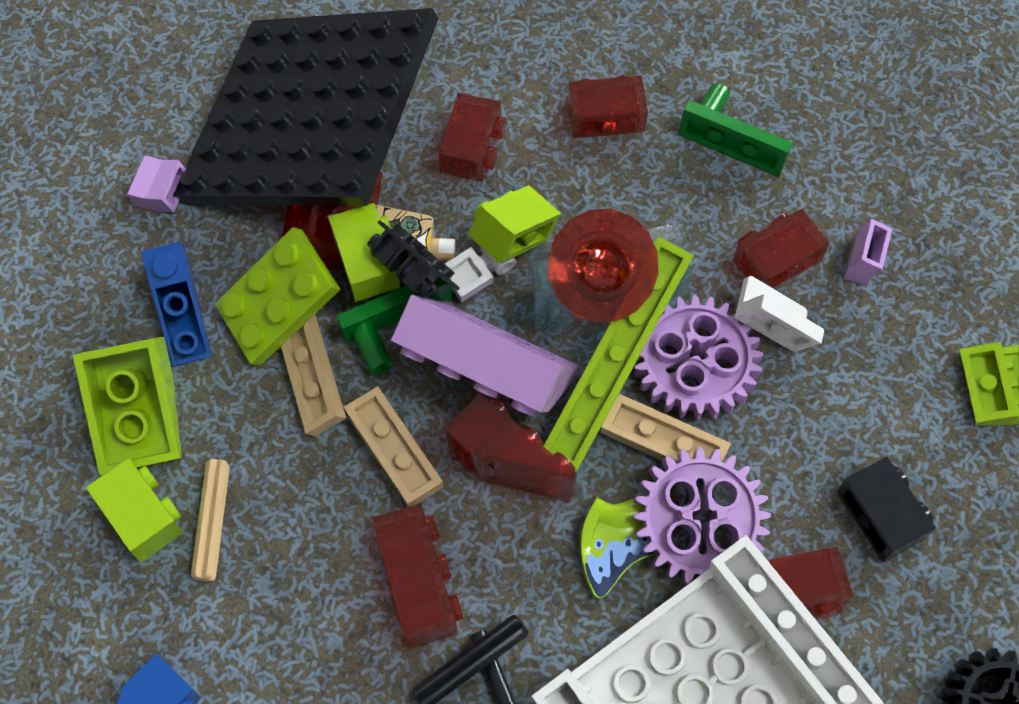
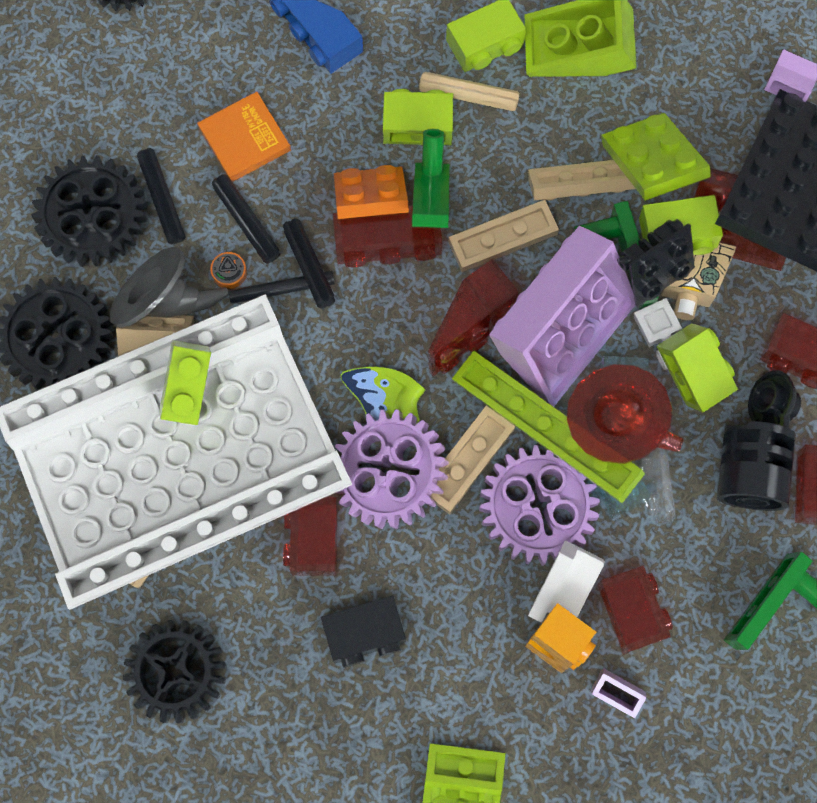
camera: 100 degrees right, 10 degrees up
(177, 302) = (672, 81): blue slope -> none
(255, 569) = (411, 113): none -> lime brick
(355, 527) = (431, 184): none -> green piece
(368, 603) = (370, 192): none -> orange plate
(592, 155) = (761, 455): none -> black cylinder
(848, 295) = (562, 640): none -> light orange arch

